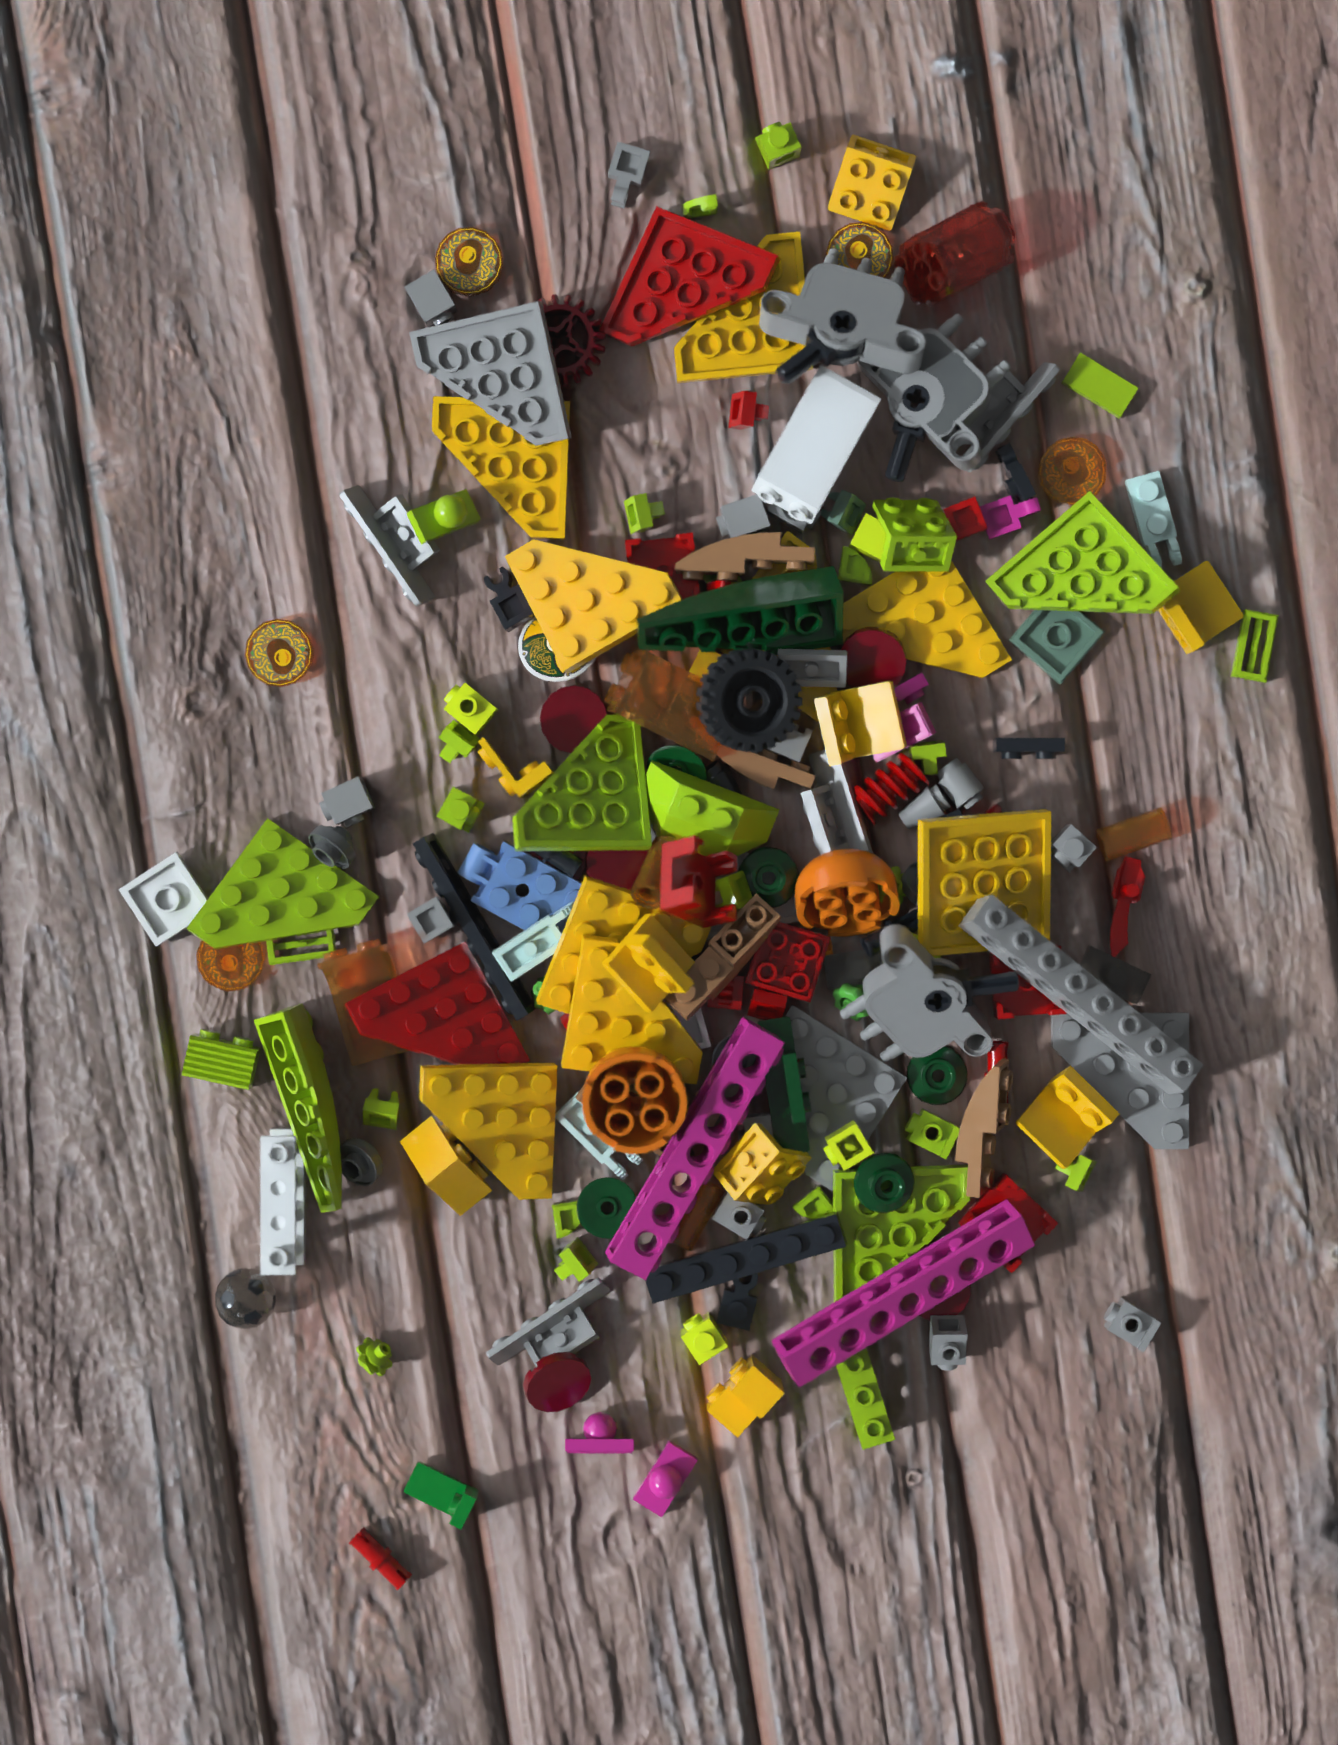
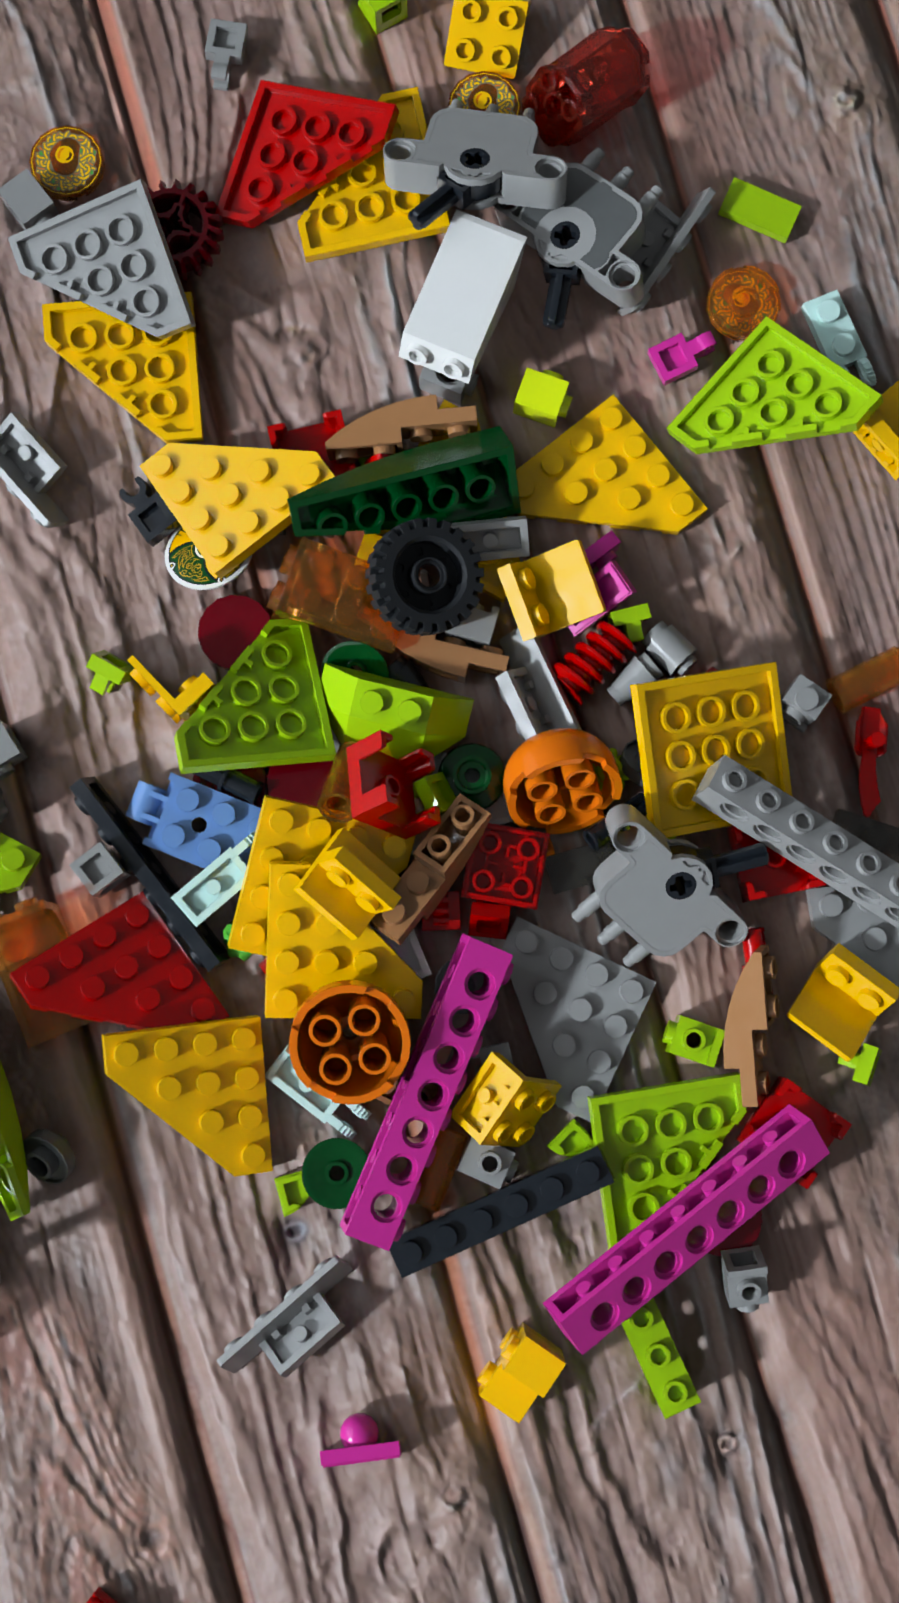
camera: 10 degrees left, 5 degrees down
(374, 1356) = (89, 1381): lime plant -> none
(381, 1113) = (67, 1096): lime tile -> none
(442, 1492) = (185, 1533): green bracket -> none
(443, 516) = (66, 428): lime tile -> none
(446, 1166) = (146, 1148): yellow brick -> none
(460, 809) = (120, 745): lime brick -> none
(469, 708) = (118, 632): neon yellow brick -> none
(557, 1382) = (302, 1384): dark red tile -> none
(576, 1261) = (308, 1239): lime tile -> none
(641, 513) = (284, 399): lime tile -> none
(665, 1478) = (442, 1482): dark pink tile -> none
(700, 207) = (310, 74): lime tile -> none
(703, 1337) = (464, 1310): neon yellow brick -> none
(738, 1305) = (499, 1267): black plate -> none
(743, 517) = (393, 385): light grey brick -> none
(746, 411) = (383, 279): red tile -> none
(784, 1090) = (520, 1012): dark green bracket -> none
(845, 511) = (504, 373): sand green tile -> none
(847, 994) = (574, 896): bright green piece -> none
(847, 1146) = (600, 1065): neon yellow brick -> none
(854, 567) = (523, 432): lime tile -> none
(874, 657) = (556, 519): dark red tile -> none
(875, 1171) = (635, 1092): dark green piece -> none
(915, 535) = (584, 385): lime bracket -> none
(941, 1092) = (674, 987): dark green piece -> none
(966, 518) = (636, 362): red tile -> none
(1017, 481) = (685, 313): black plate -> none
(1042, 747) = (724, 600): black plate -> none
(1056, 640) = (752, 482): sand green tile -> none

